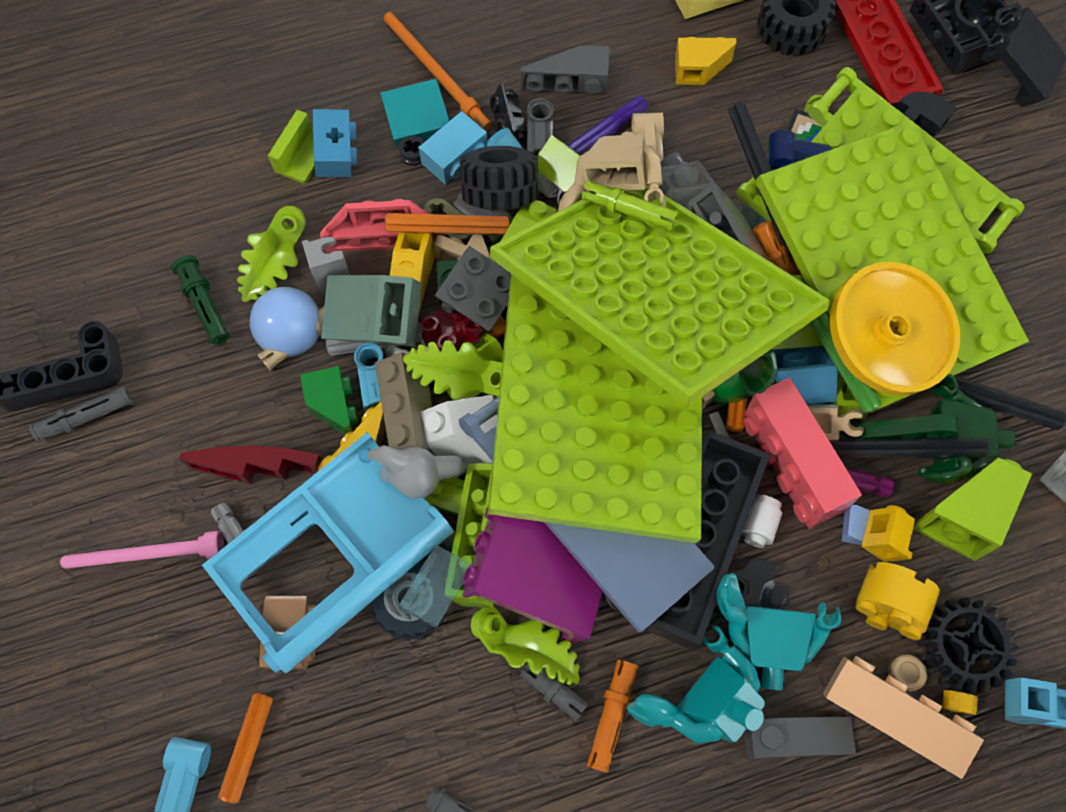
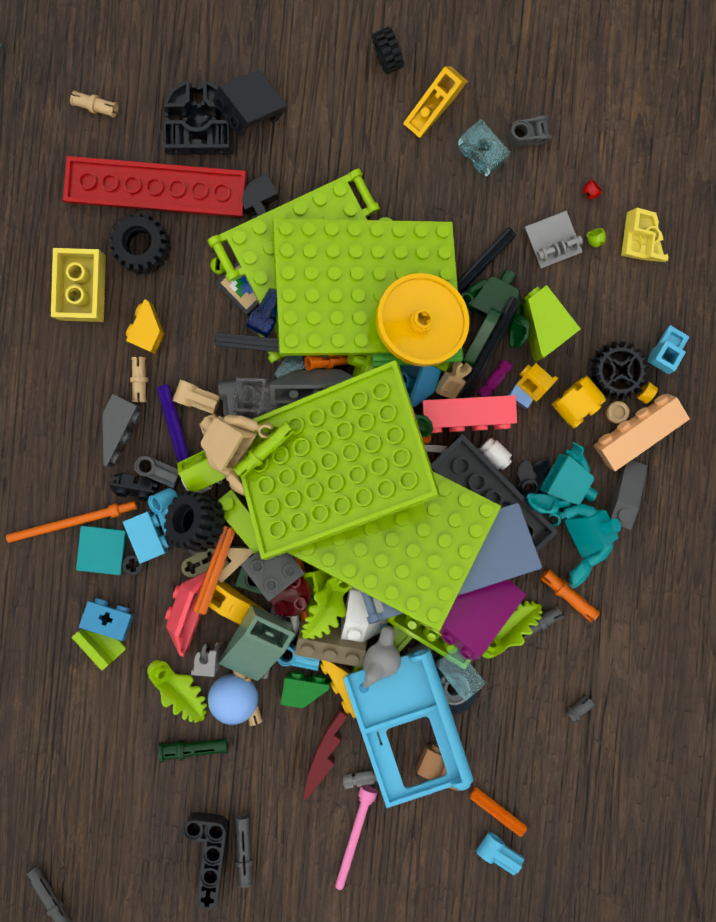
camera: 70 degrees left, 20 degrees up
(637, 75) = (138, 380): none -> tan pin

